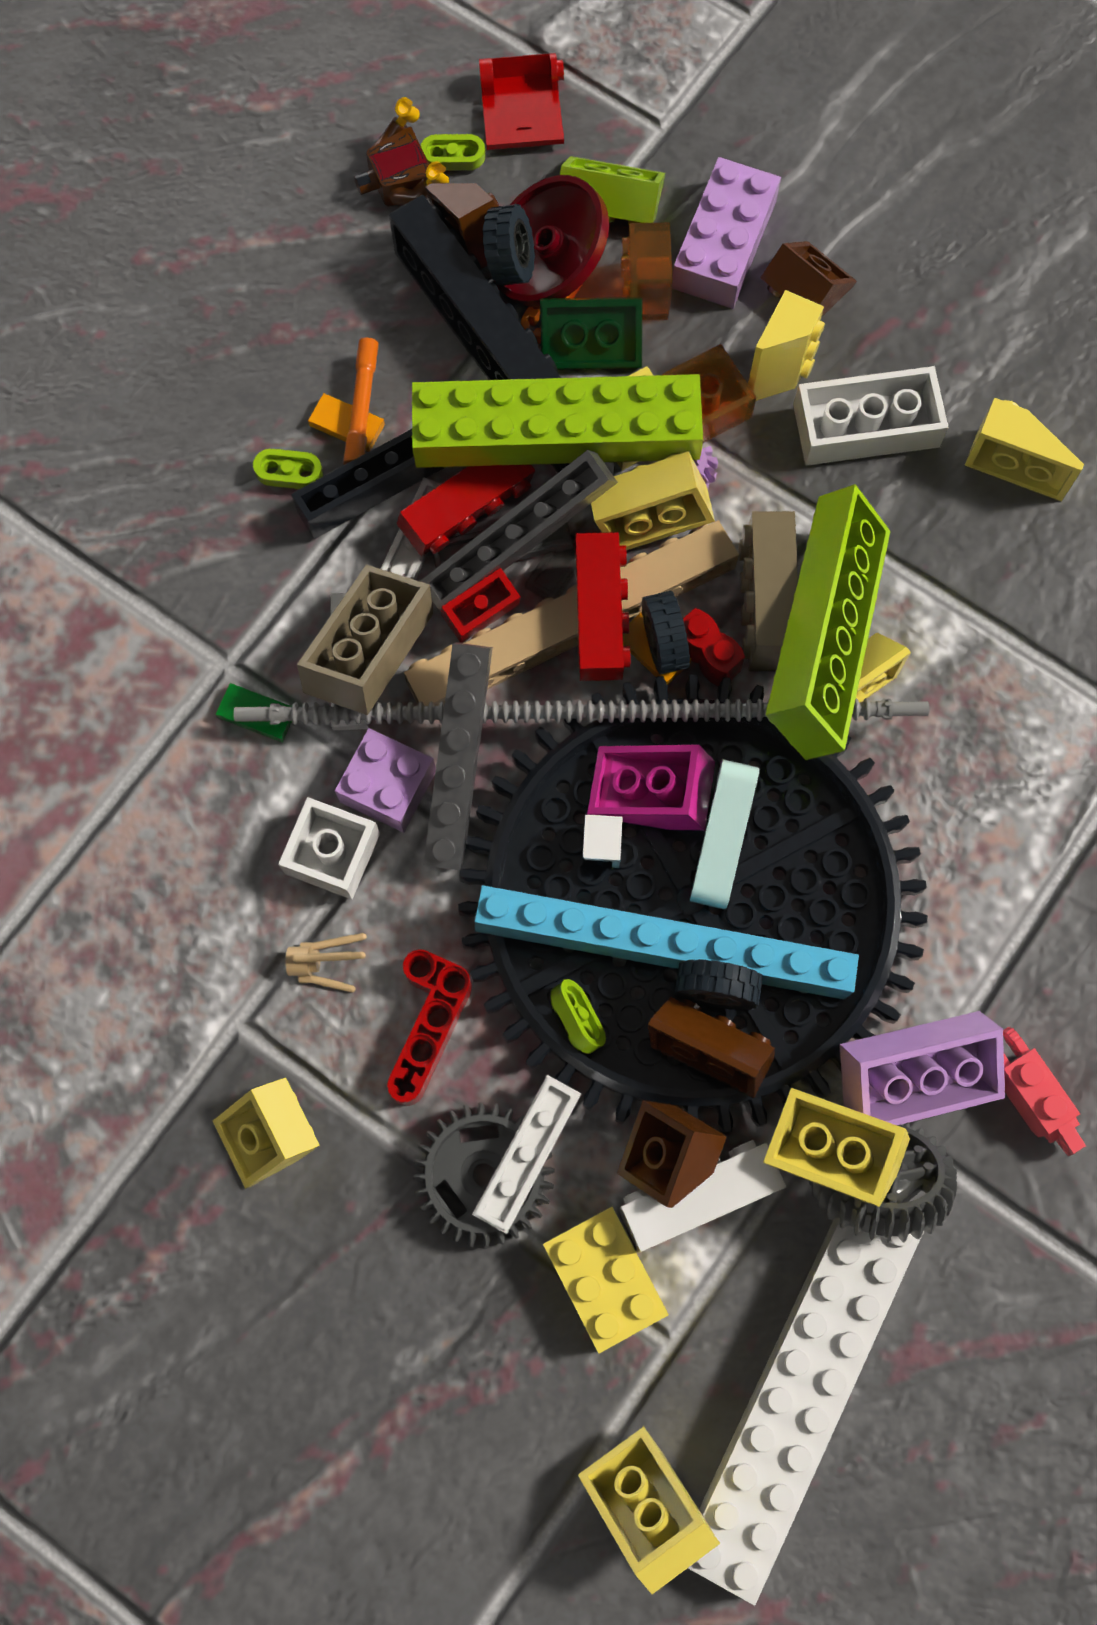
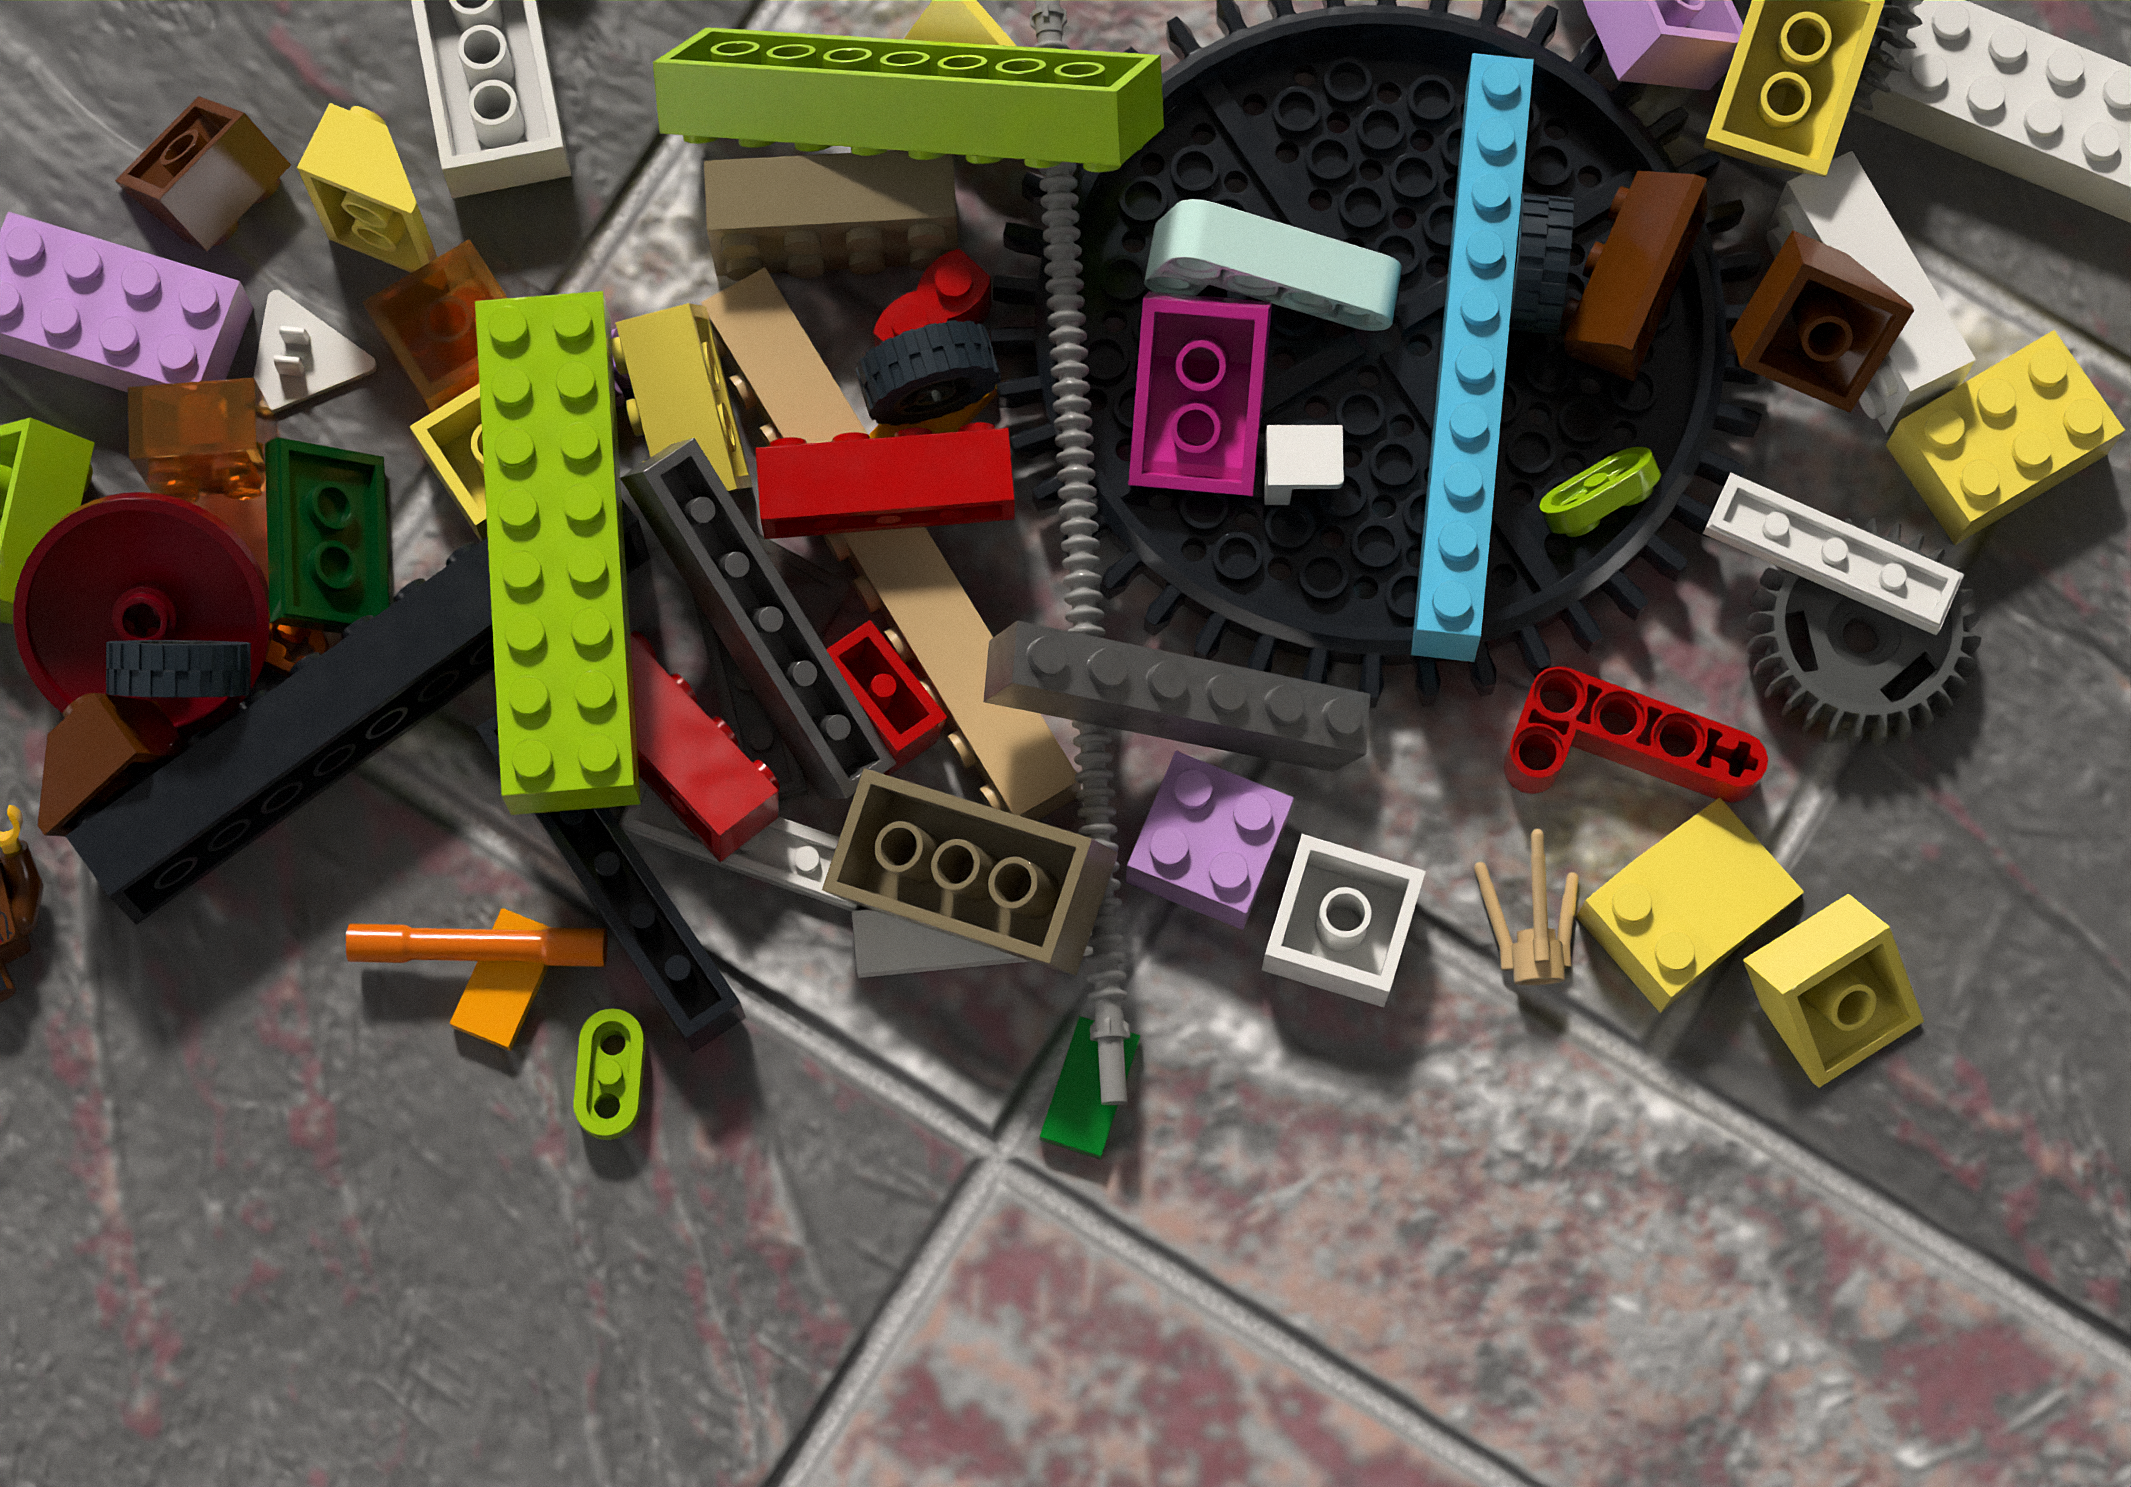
camera: 95 degrees left, 0 degrees up
(326, 1053) = (1688, 903): none -> light yellow slope
(702, 328) = (303, 355): none -> white piece

